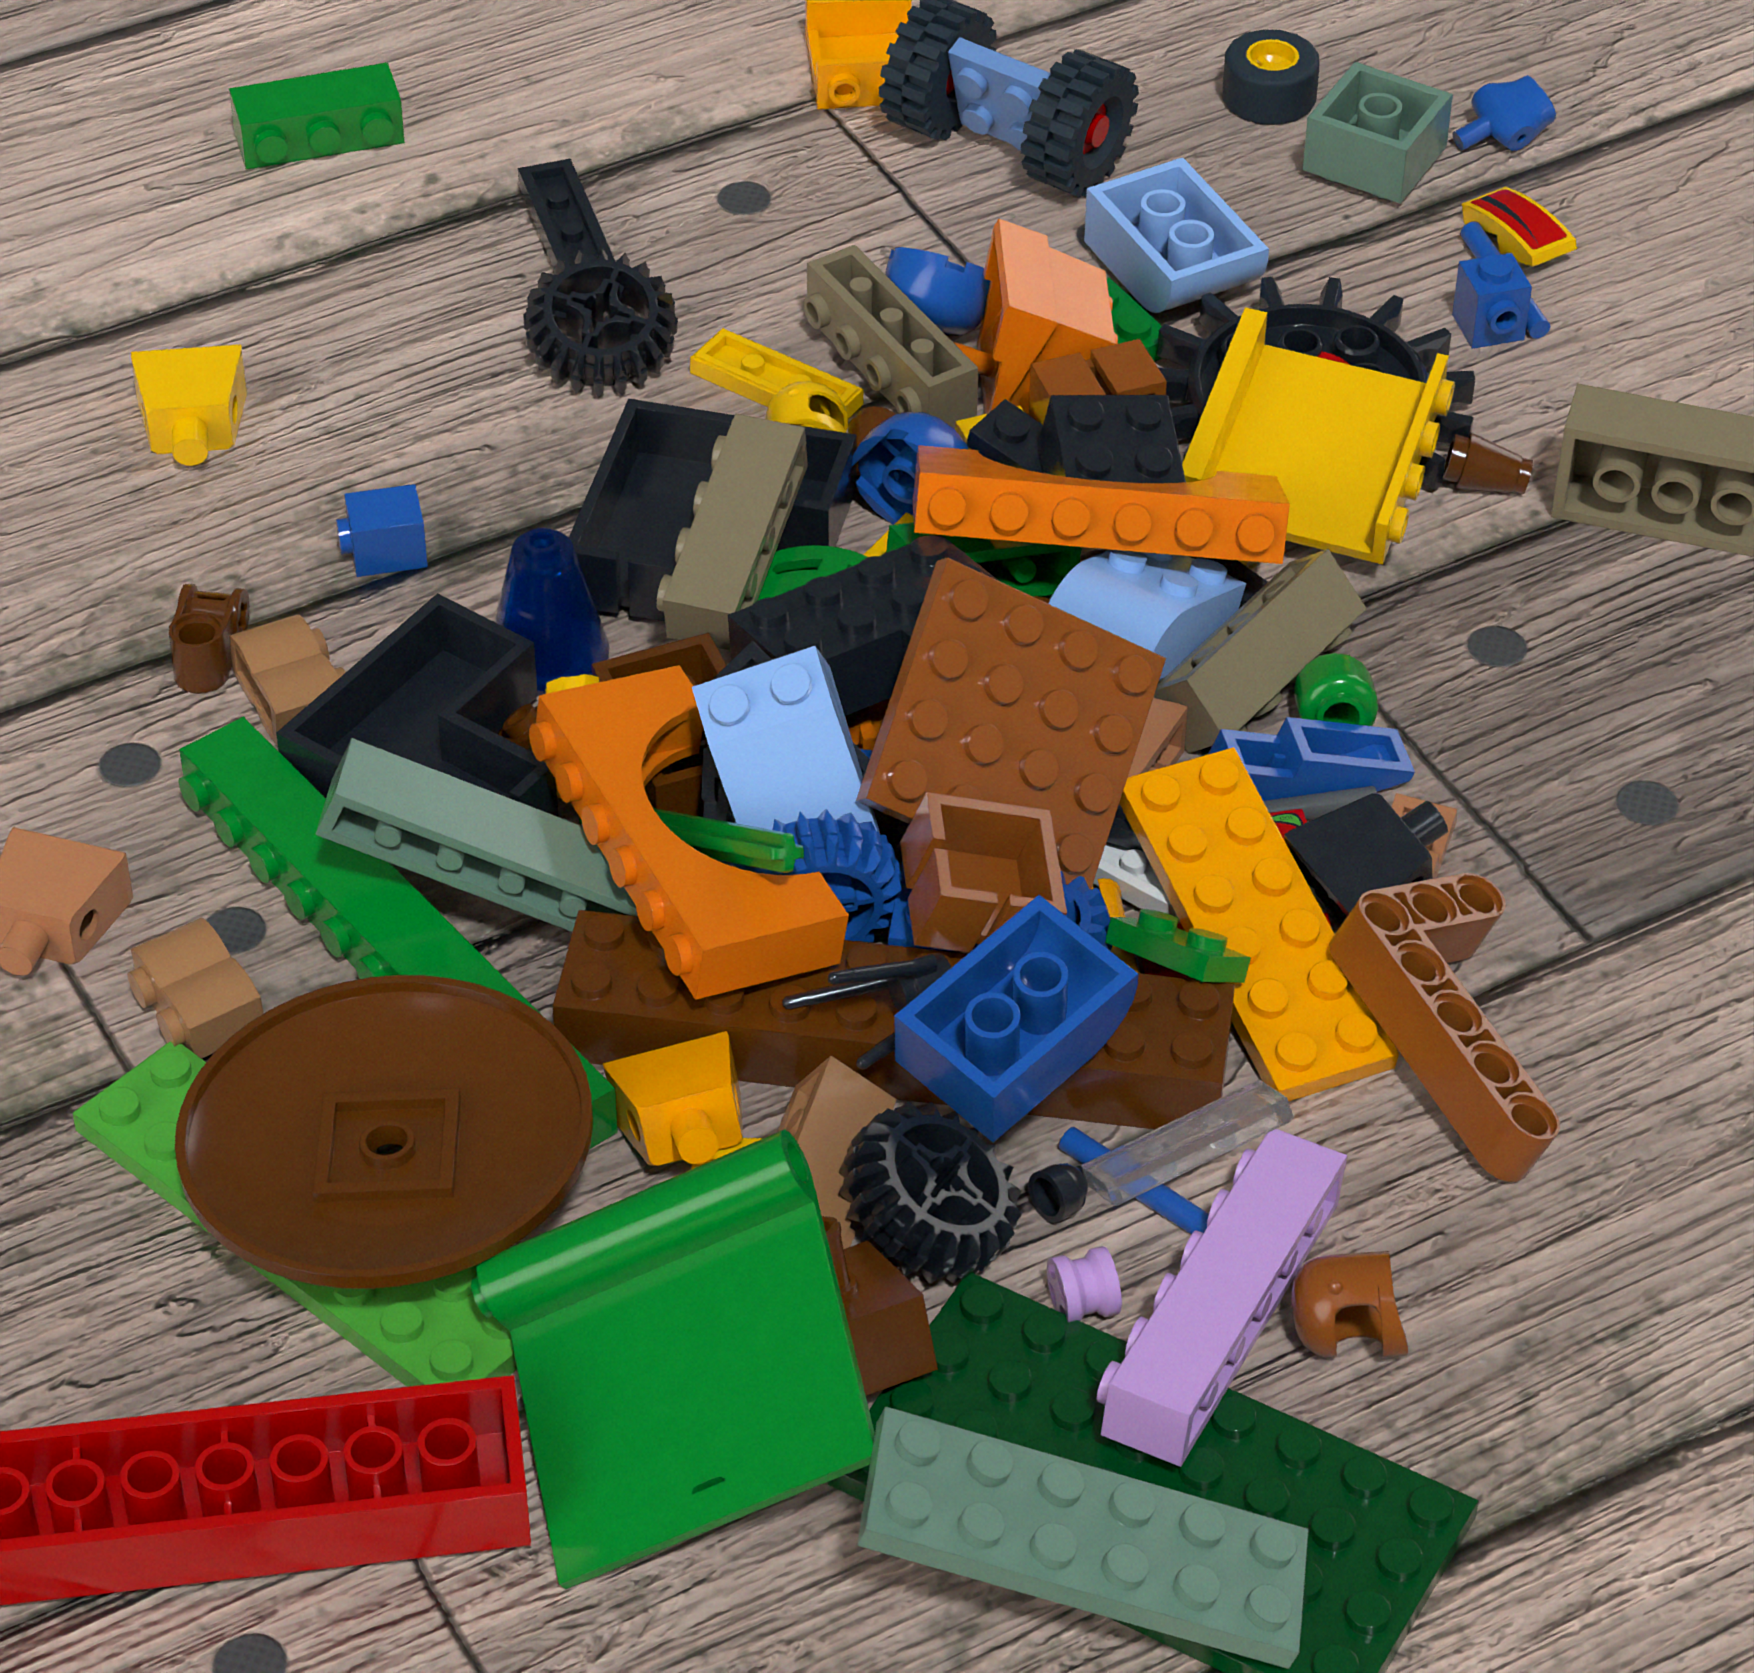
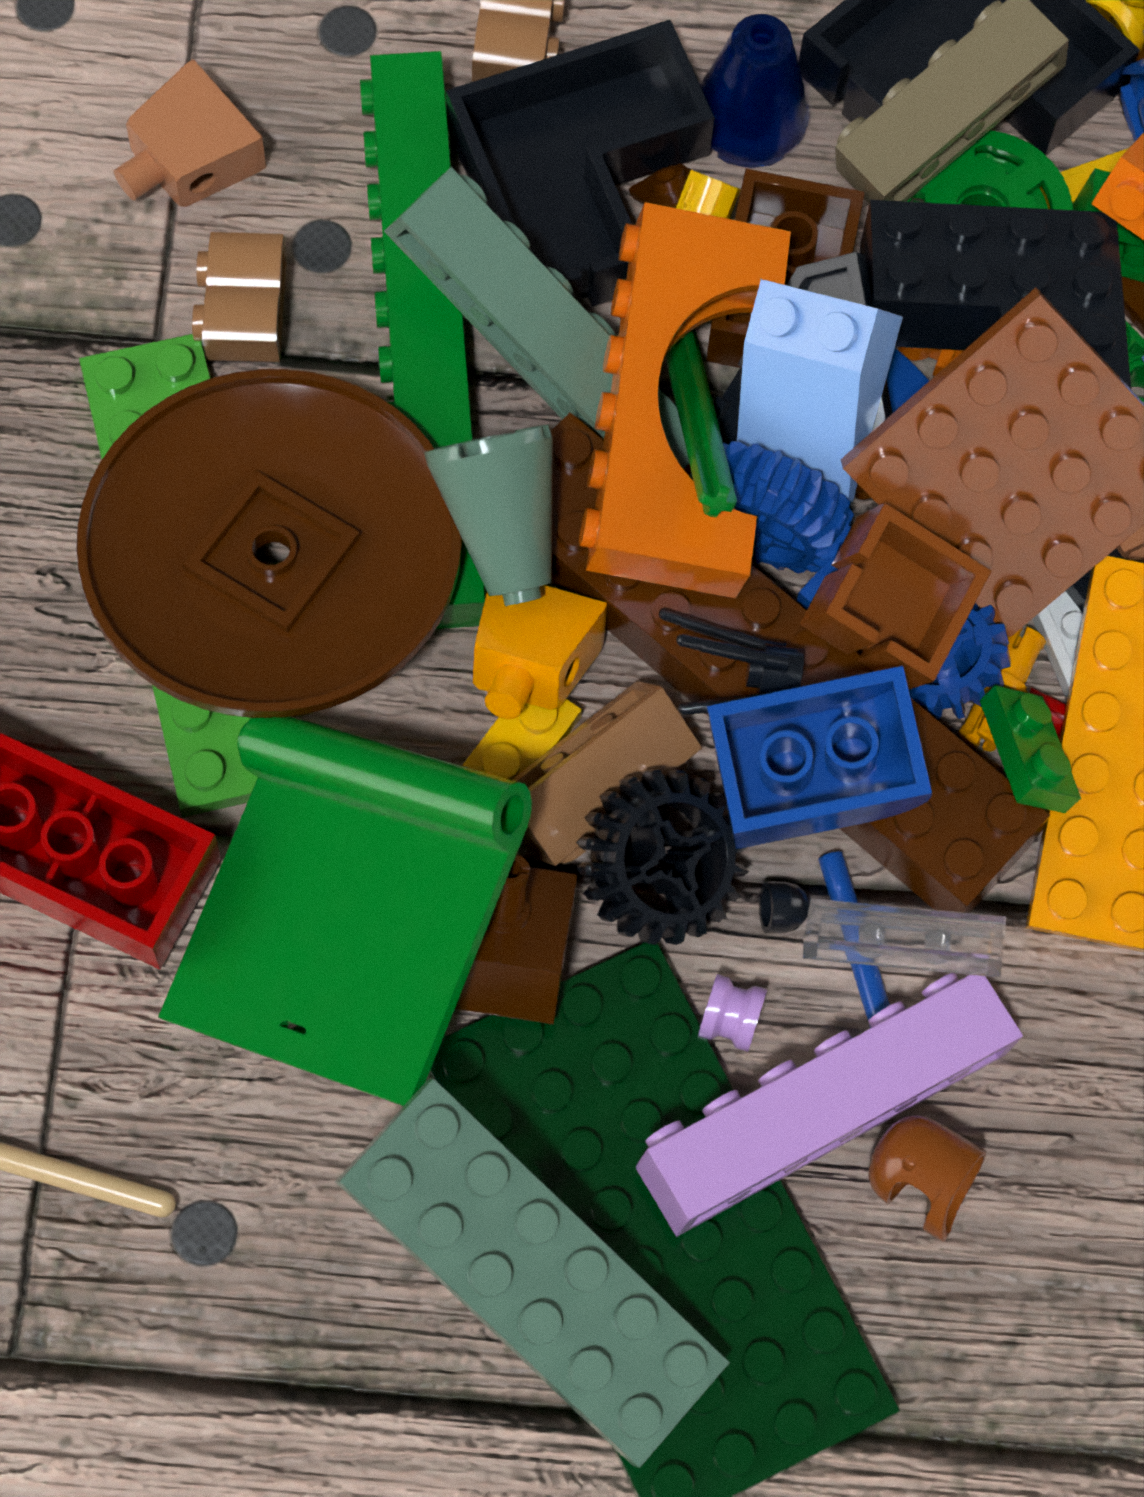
camera: 30 degrees right, 25 degrees up
(584, 981) = (502, 507): none -> sand green cone

